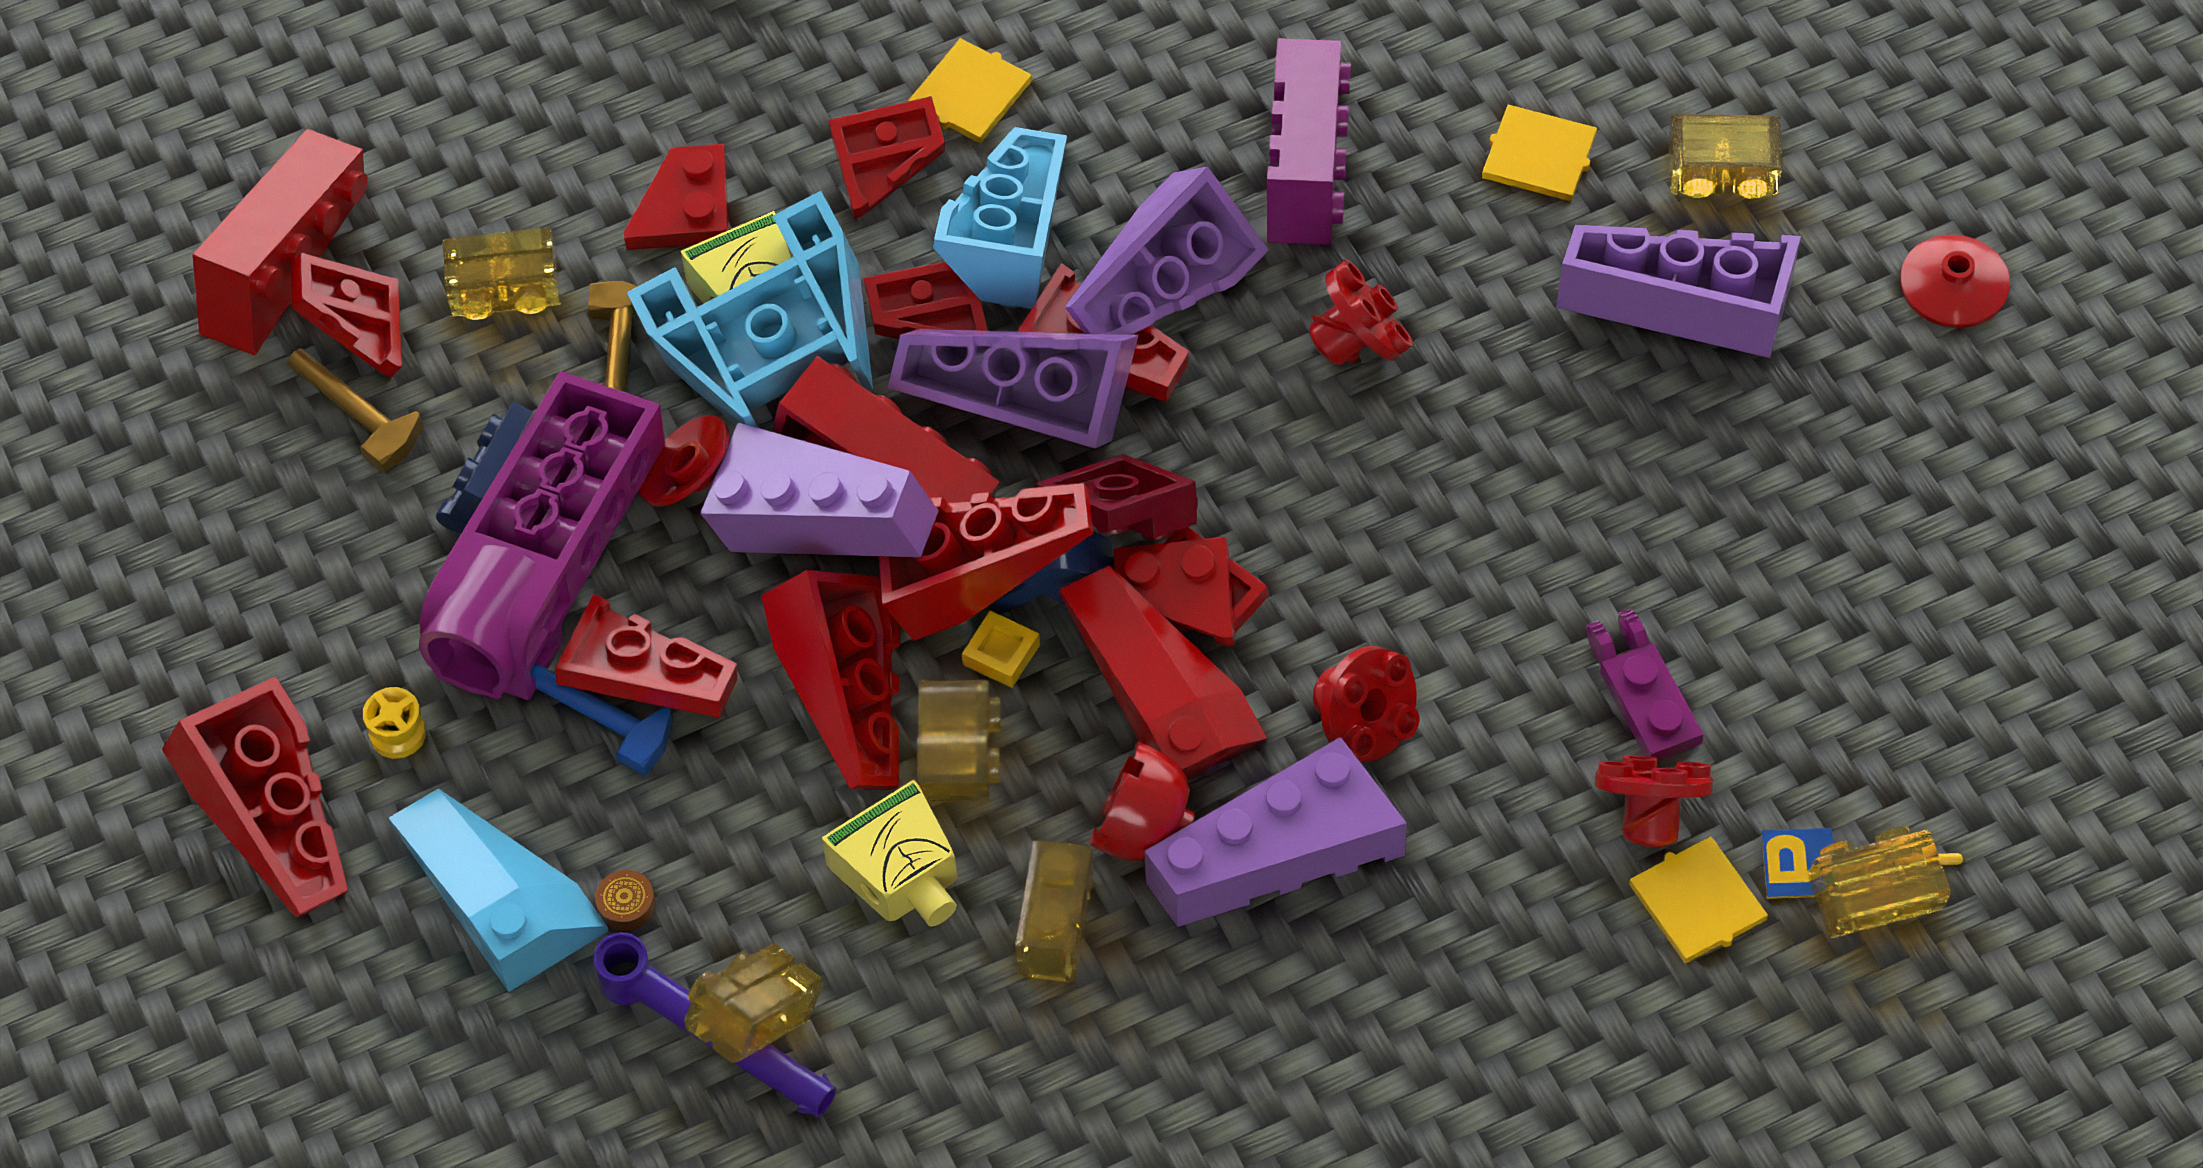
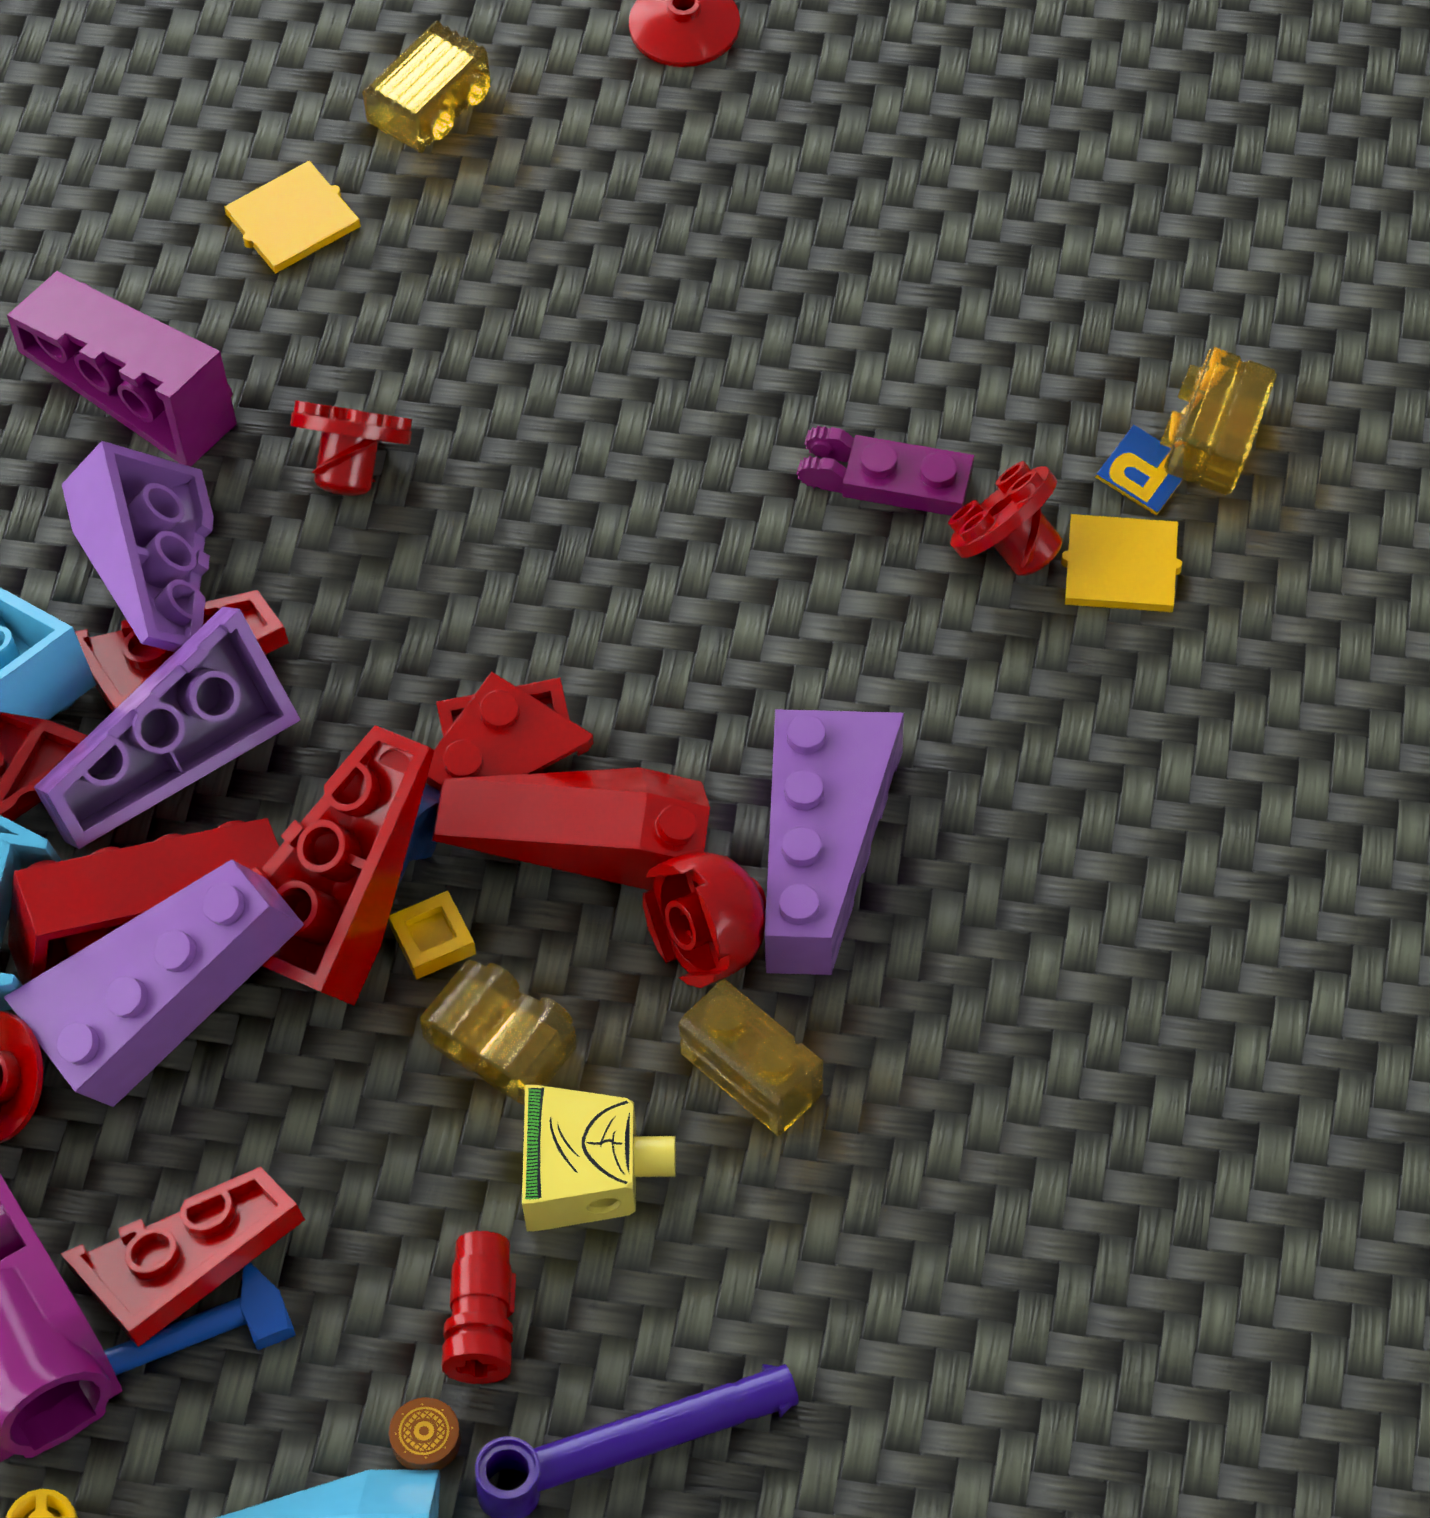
camera: 55 degrees left, 0 degrees up
(742, 866) = (481, 1300): none -> red axle
(752, 1002) = (650, 1376): clear yellow brick -> none
(839, 658) = (303, 1072): red wedge -> none
(1134, 497) = (404, 700): dark red plate -> none
(1368, 702) = (743, 676): red plate -> none
(1681, 283) = (534, 190): medium lavender wedge -> none

